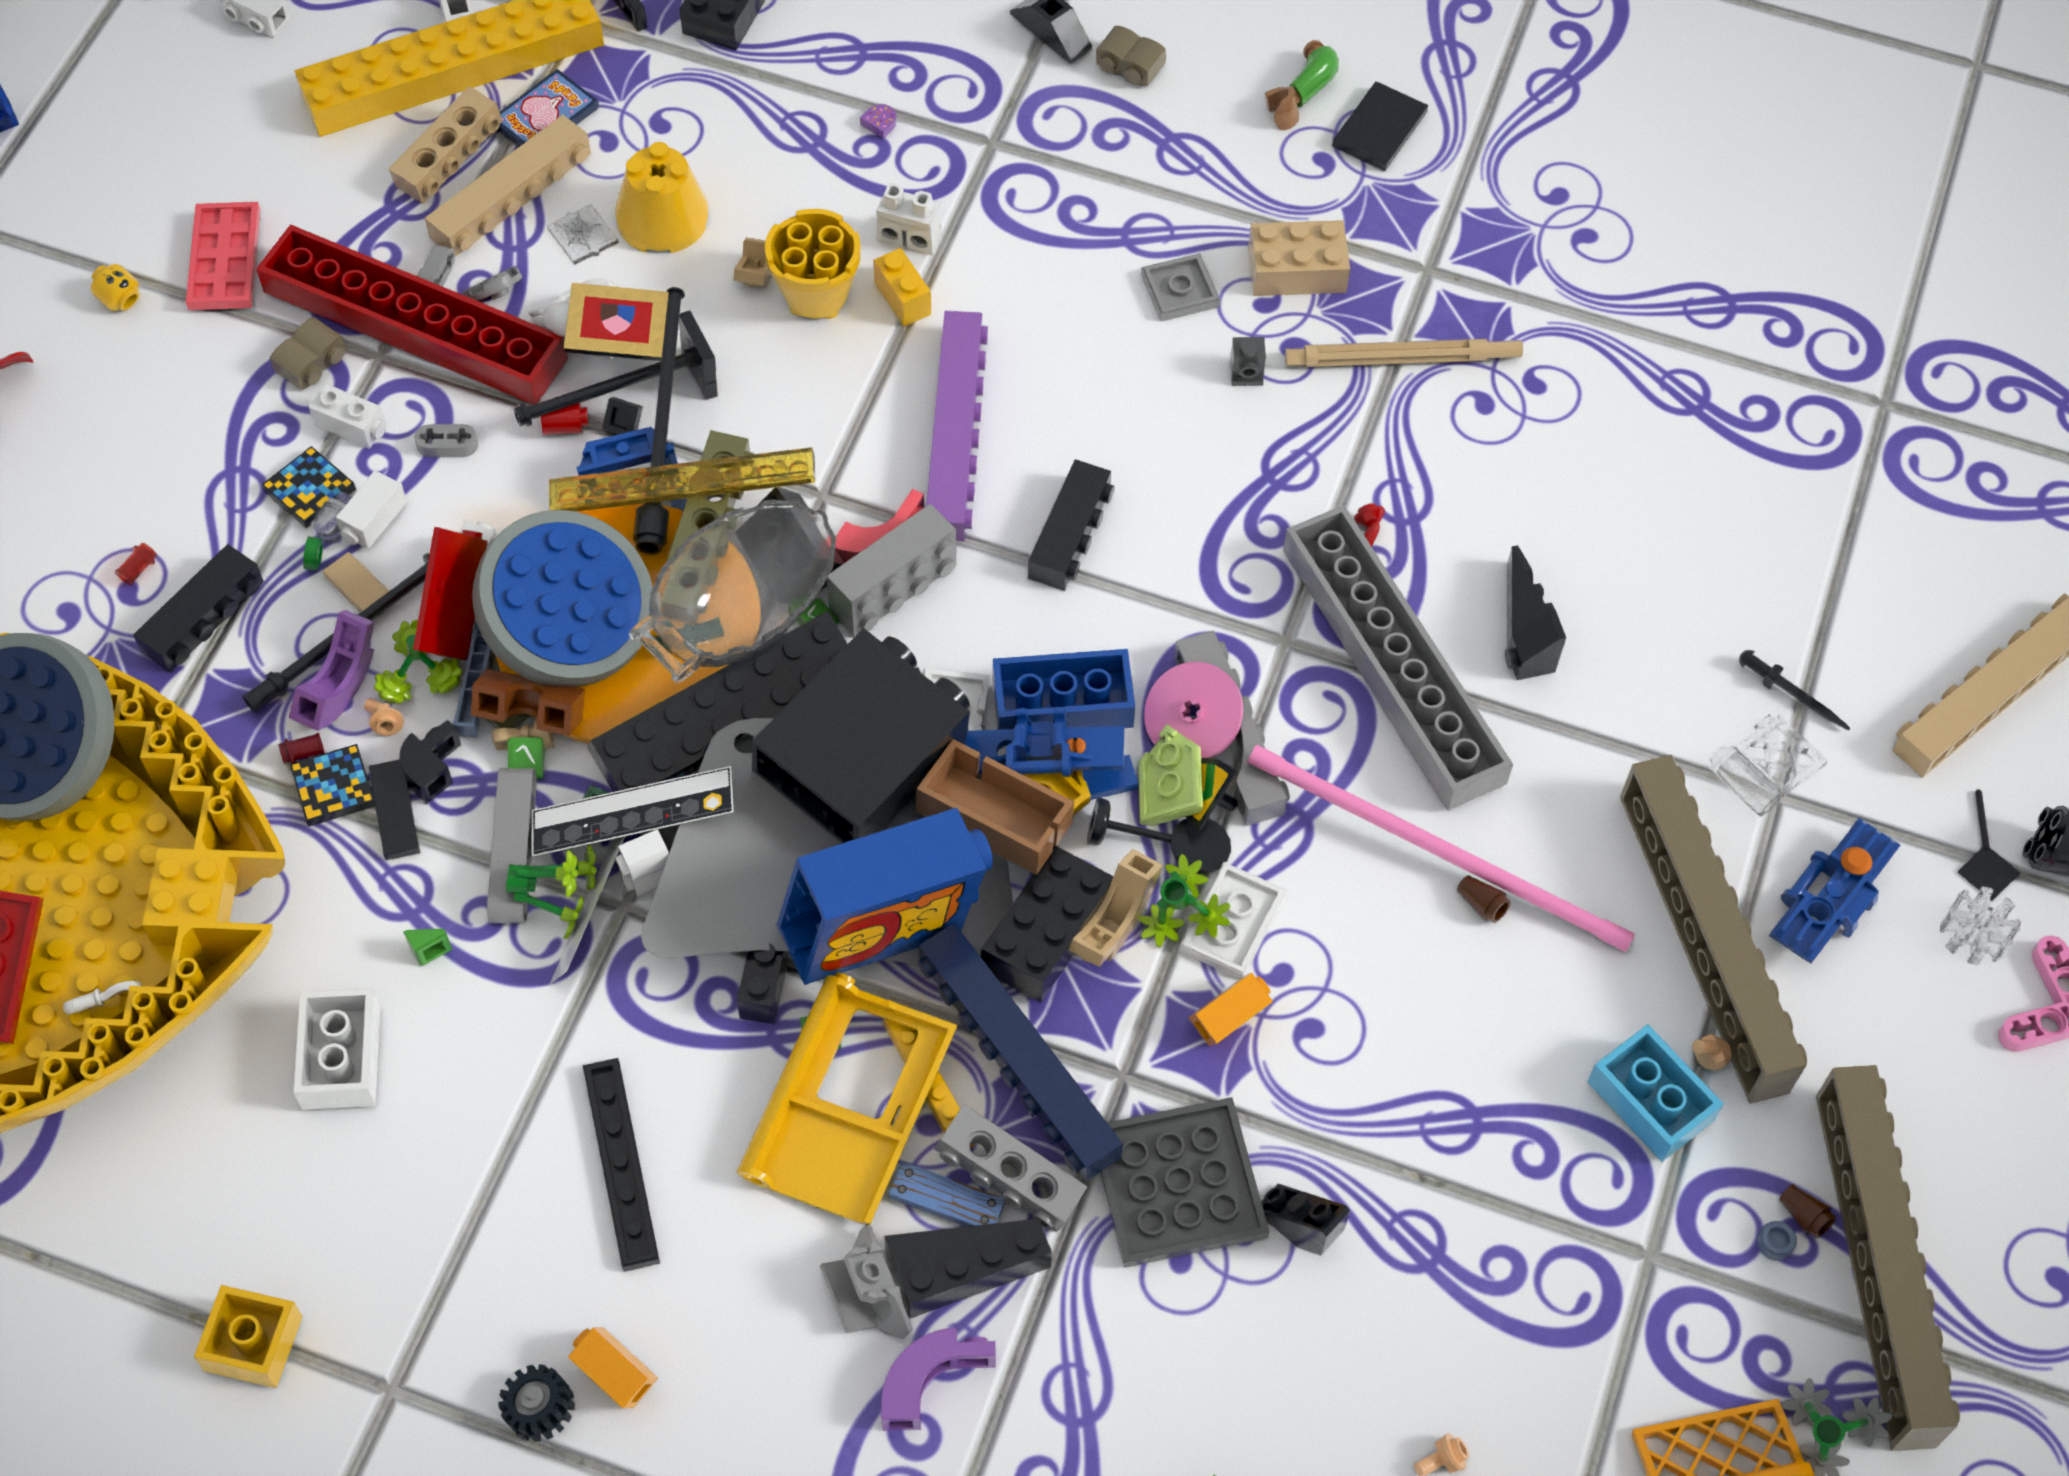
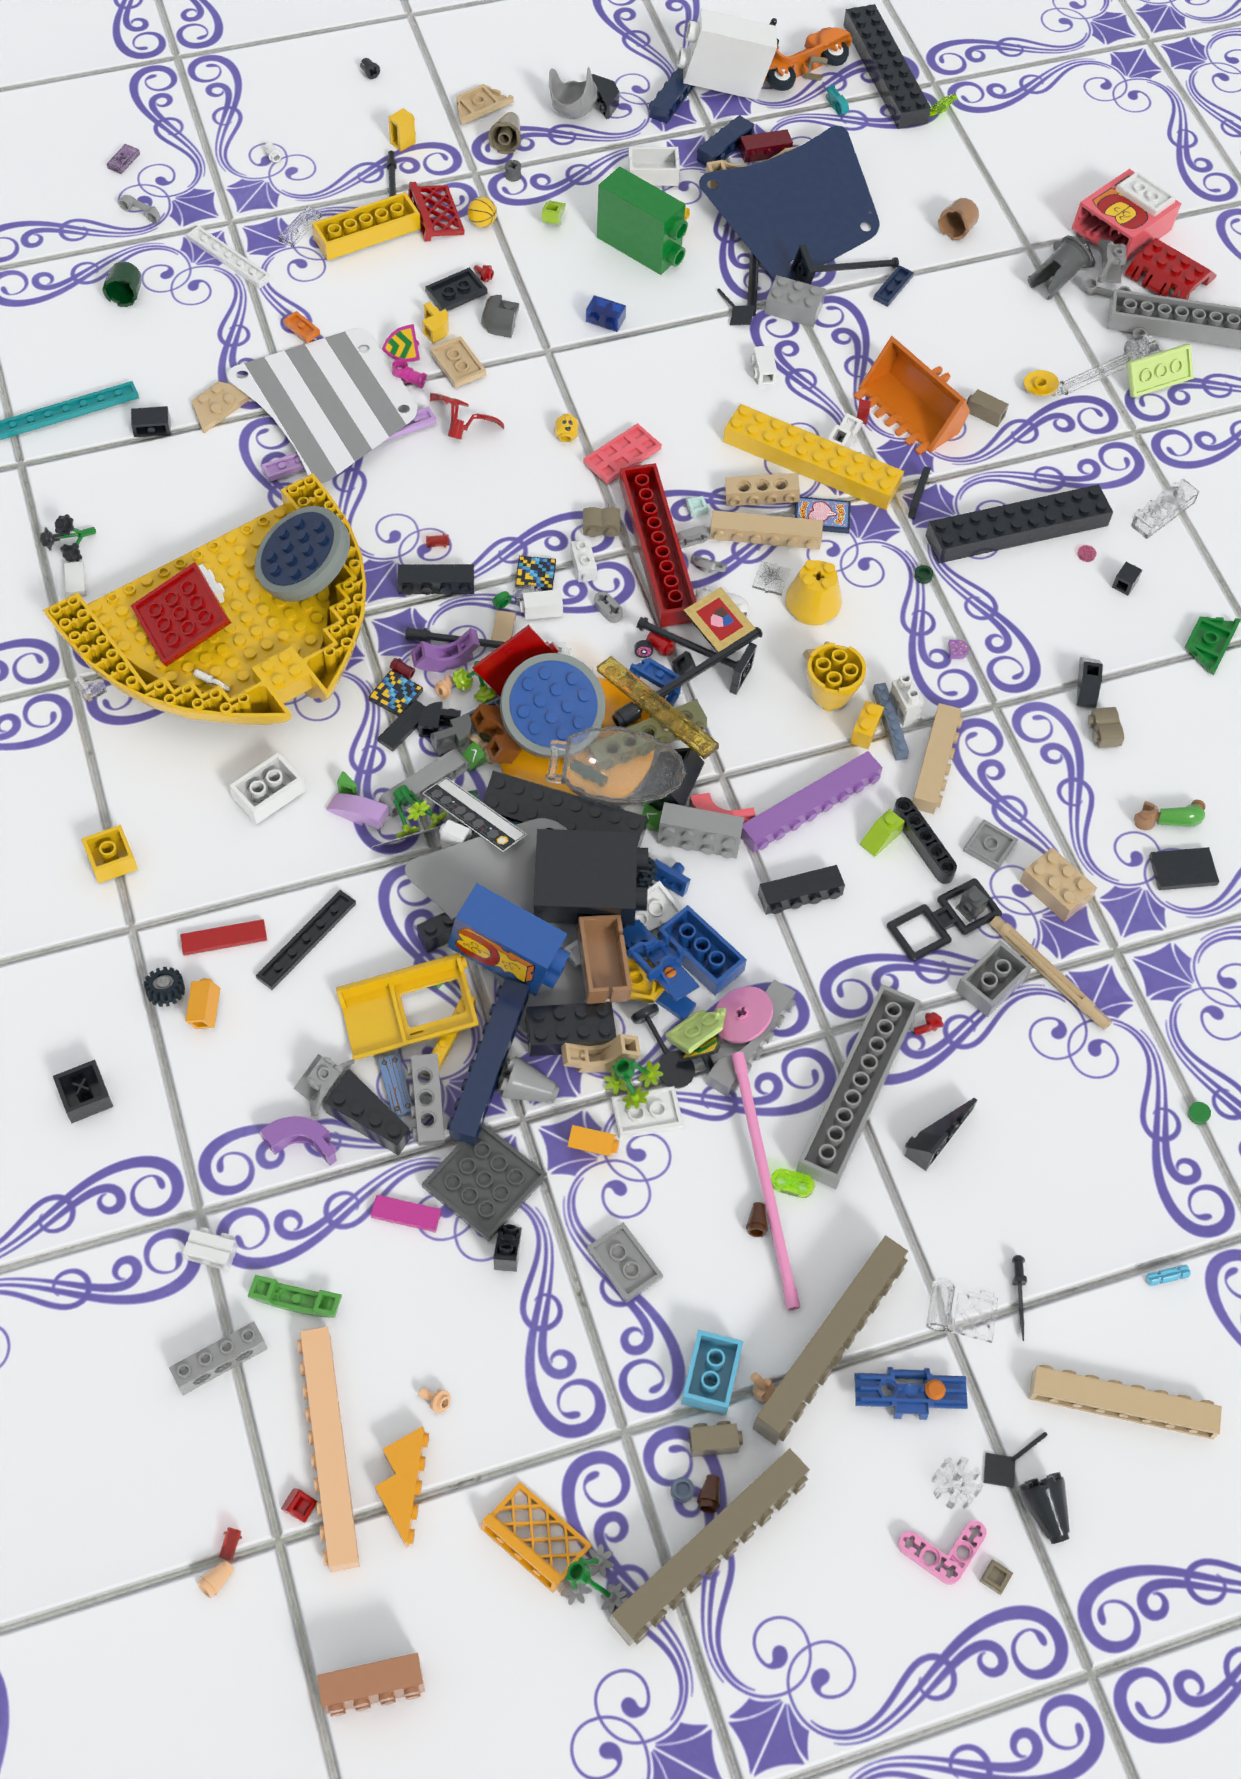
camera: 50 degrees right, 0 degrees up
(391, 234) = (696, 506): none -> light aqua tile
(478, 758) = (452, 737): none -> dark grey brick
(478, 955) = (359, 809): none -> lavender slope
(520, 1271) = (223, 937): none -> red tile
(553, 445) = (643, 649): none -> tile
(738, 75) = (923, 574): none -> dark green tile
(928, 264) = (891, 722): none -> sand blue piece
(933, 652) = (672, 877): none -> blue tile
(1015, 251) = (936, 758): none -> tan brick
(1068, 381) = (882, 833): none -> lime slope
(1084, 1029) = (526, 1083): none -> light grey cone
(1116, 346) = (925, 848): none -> black beam
(1147, 1314) = (406, 1213): none -> dark pink tile
(1238, 412) = (942, 920): none -> black bar
(1369, 412) = (993, 978): none -> light grey brick
(1425, 1092) = (624, 1262): none -> light grey plate
(1461, 826) = (792, 1182): none -> clear neon green plate
(1700, 345) = (1199, 1113): none -> green tile
(1741, 1155) = (714, 1439): none -> dark tan brick
(1876, 524) = (1168, 1275): none -> medium azure axle

